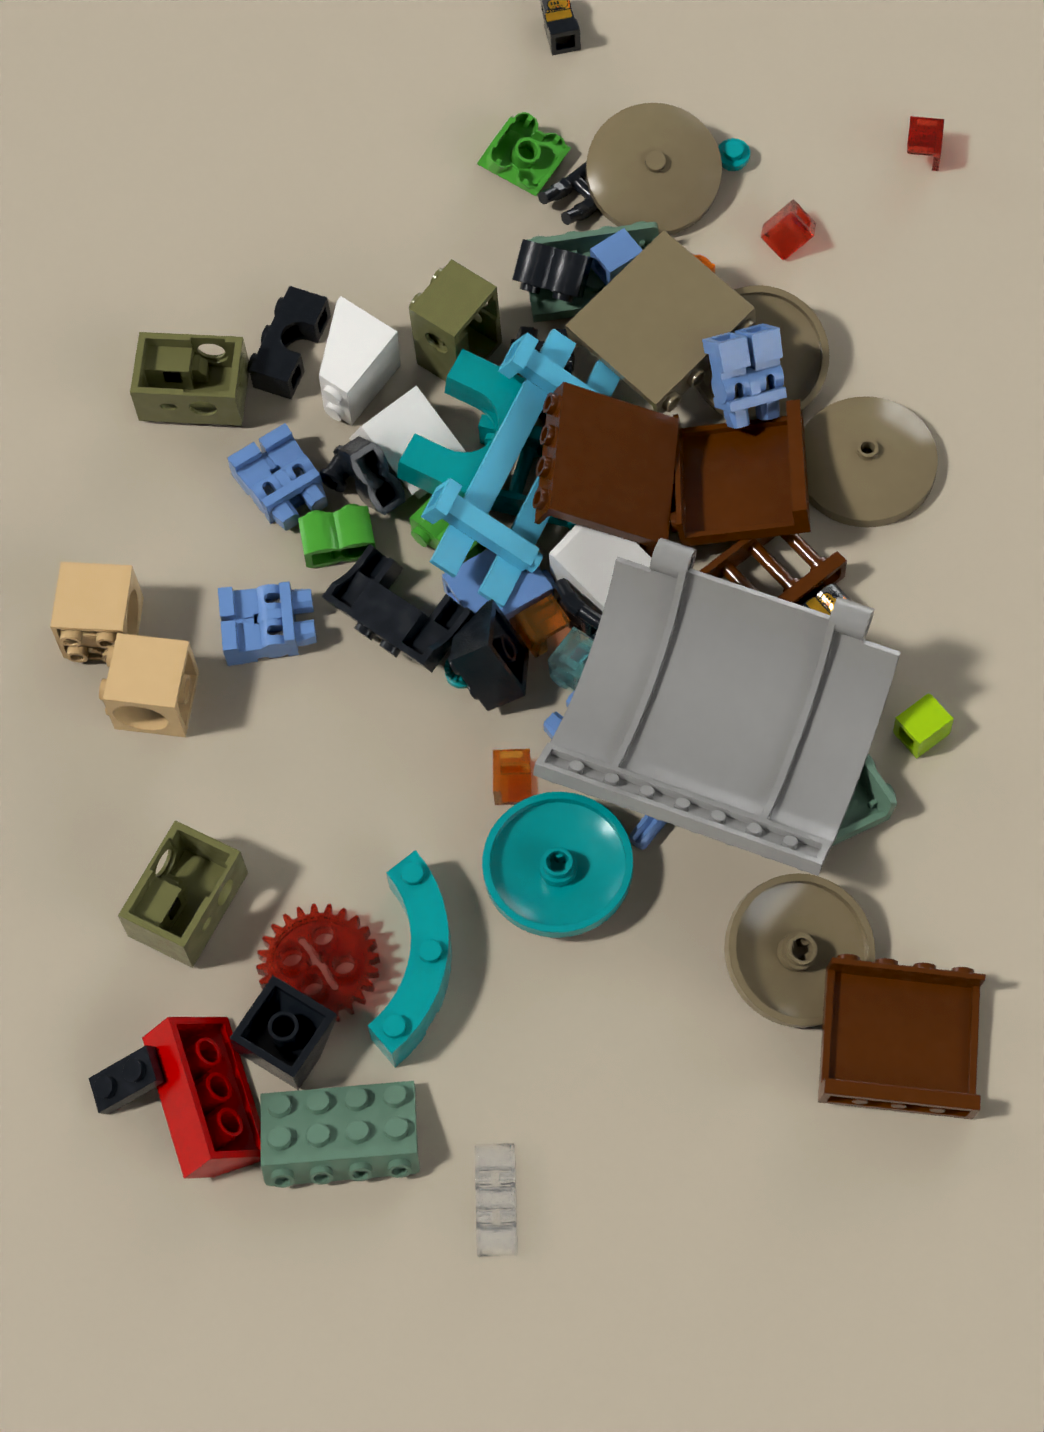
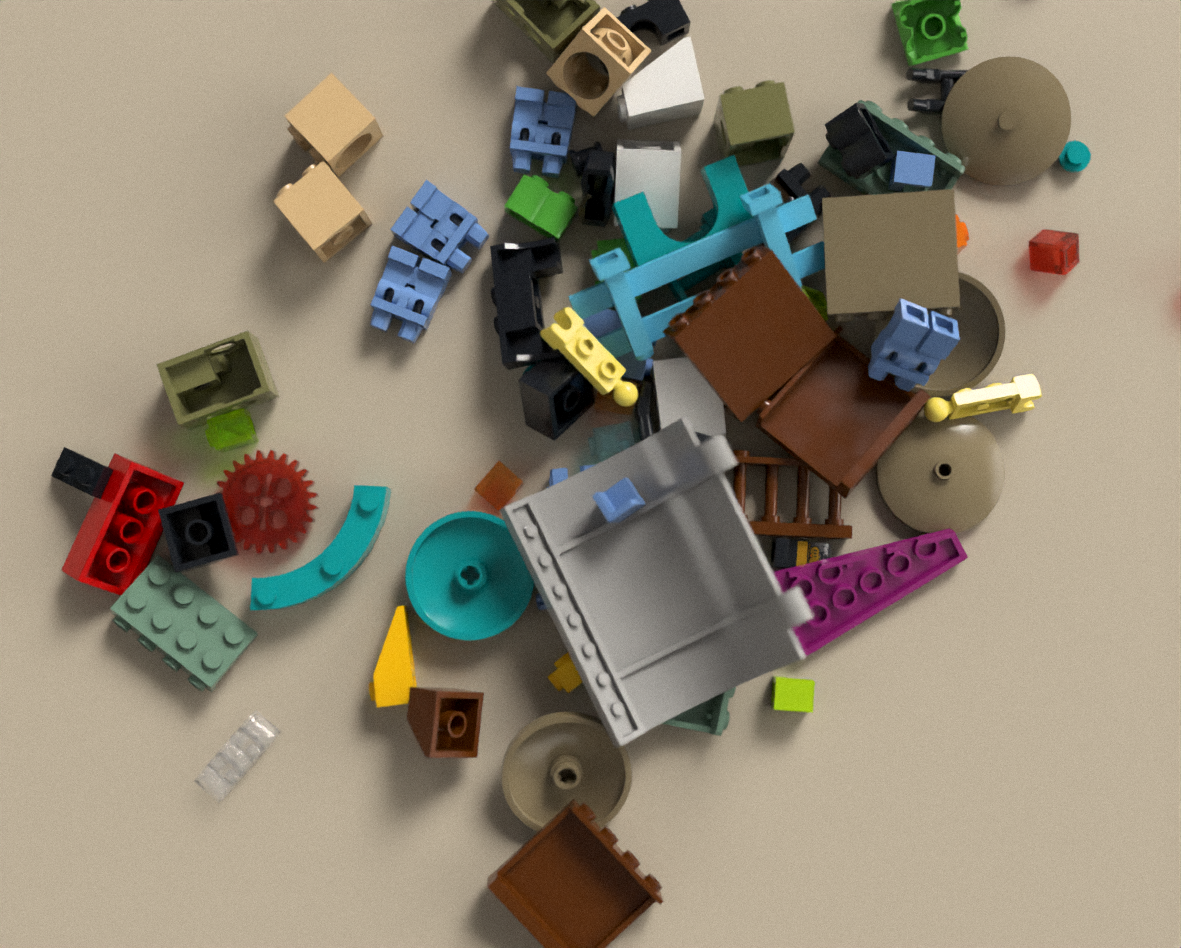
camera: 40 degrees right, 20 degrees up
(232, 932) = (231, 431): none -> clear neon green brick
(270, 350) = (614, 46): none -> tan brick
(285, 692) = (429, 285): none -> medium blue hips
(491, 595) = (589, 356): none -> light yellow plate
(570, 1004) = (395, 665): none -> yellow slope
(628, 682) = (619, 501): none -> medium blue panel
(652, 990) = (446, 721): none -> reddish brown slope
(719, 867) = (565, 675): none -> yellow brick
(847, 373) = (992, 398): none -> light yellow plate
(901, 577) = (864, 582): none -> magenta wing

